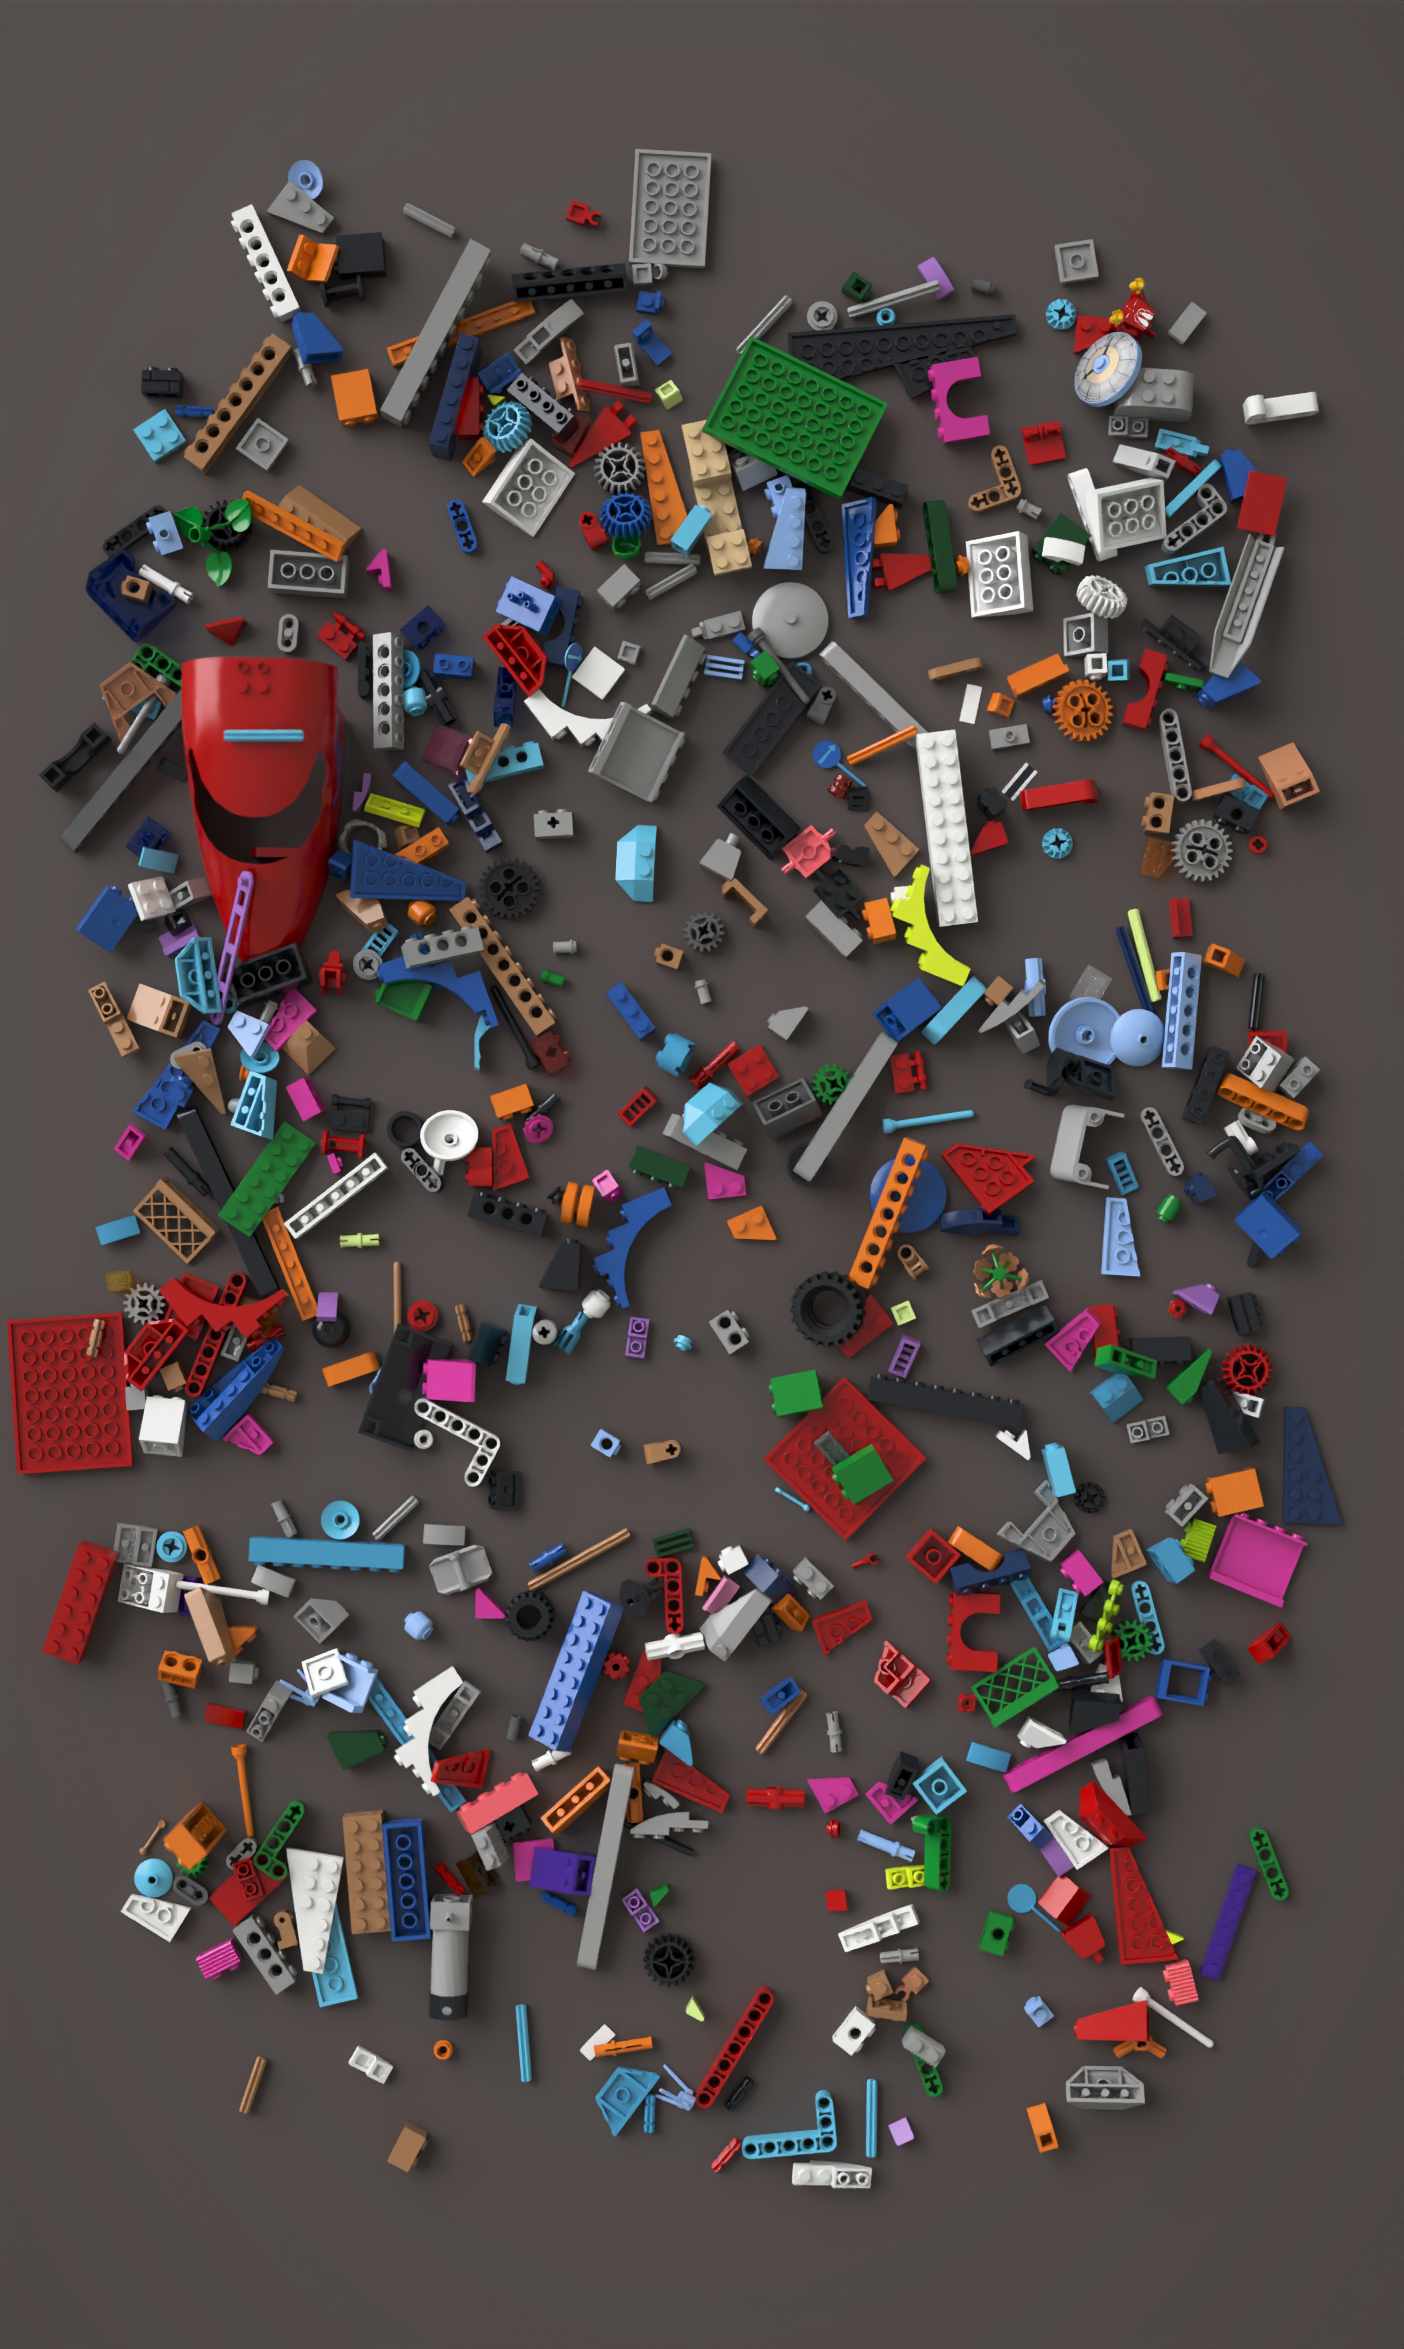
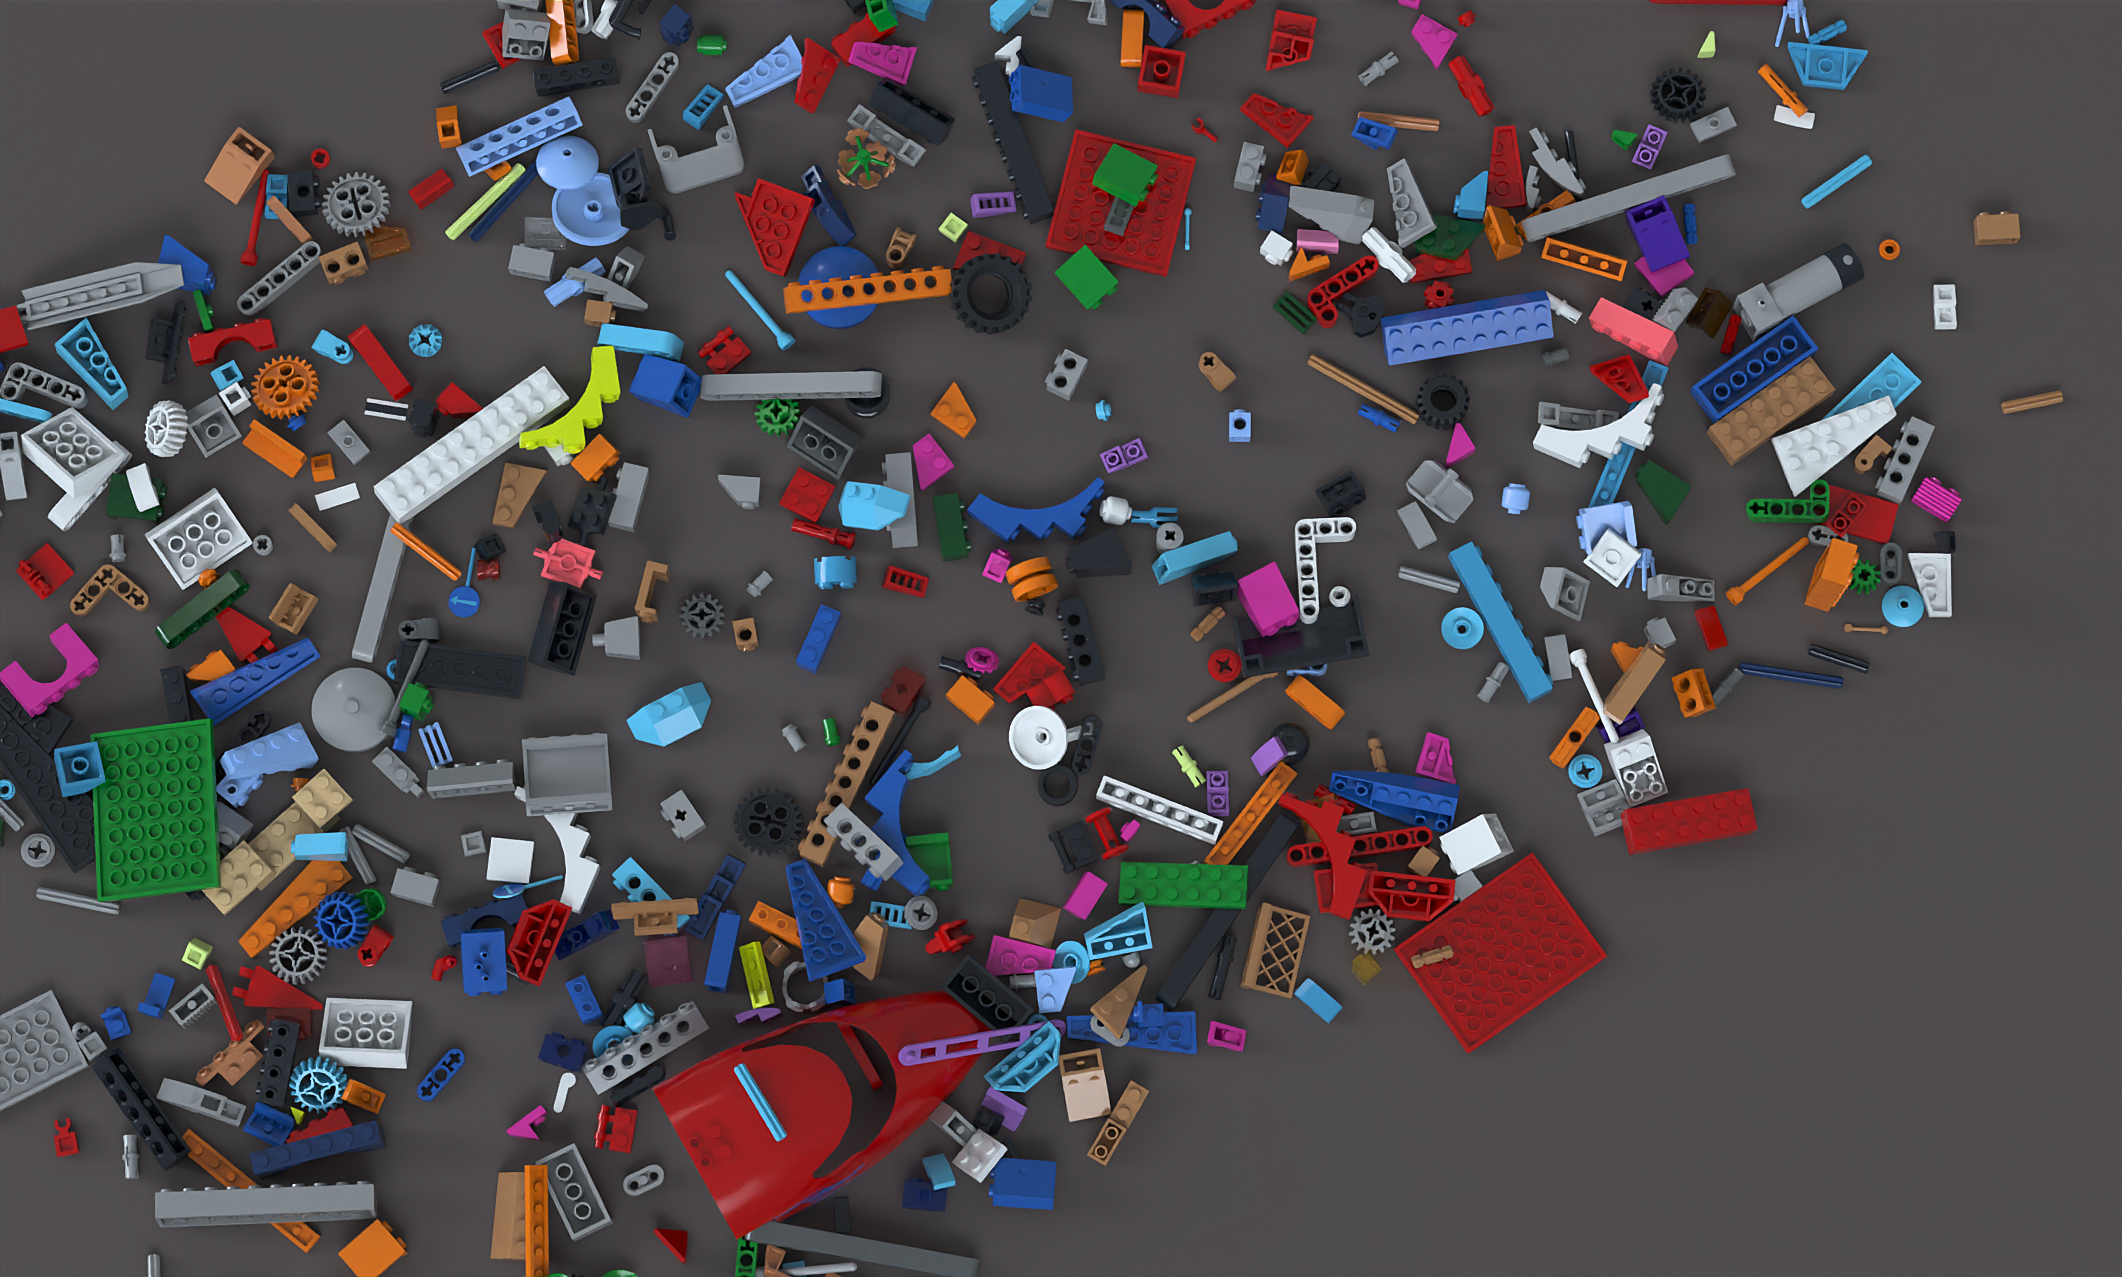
camera: 125 degrees left, 10 degrees down
(141, 1801) = (1838, 658): none -> black axle
(151, 1754) = (1791, 675): none -> dark blue axle
(182, 1945) = (1946, 541): none -> black slope
(325, 1250) = (1217, 793): none -> medium lavender slope
(401, 619) = (567, 1080): none -> white sticker
(629, 1972) = (1713, 125): none -> light grey plate
(699, 1686) = (1409, 204): none -> light grey wing
(865, 378) = (79, 768): none -> dark azure slope
(898, 617) = (293, 609): none -> medium nougat bracket
(968, 618) = (256, 546): none -> light grey bush
(972, 1447) = (1040, 91): none -> blue piece
(1070, 961) = (532, 262): none -> light grey brick
(1094, 1277) = (816, 73): none -> red wing
(1096, 765) = (330, 346): none -> medium azure piece

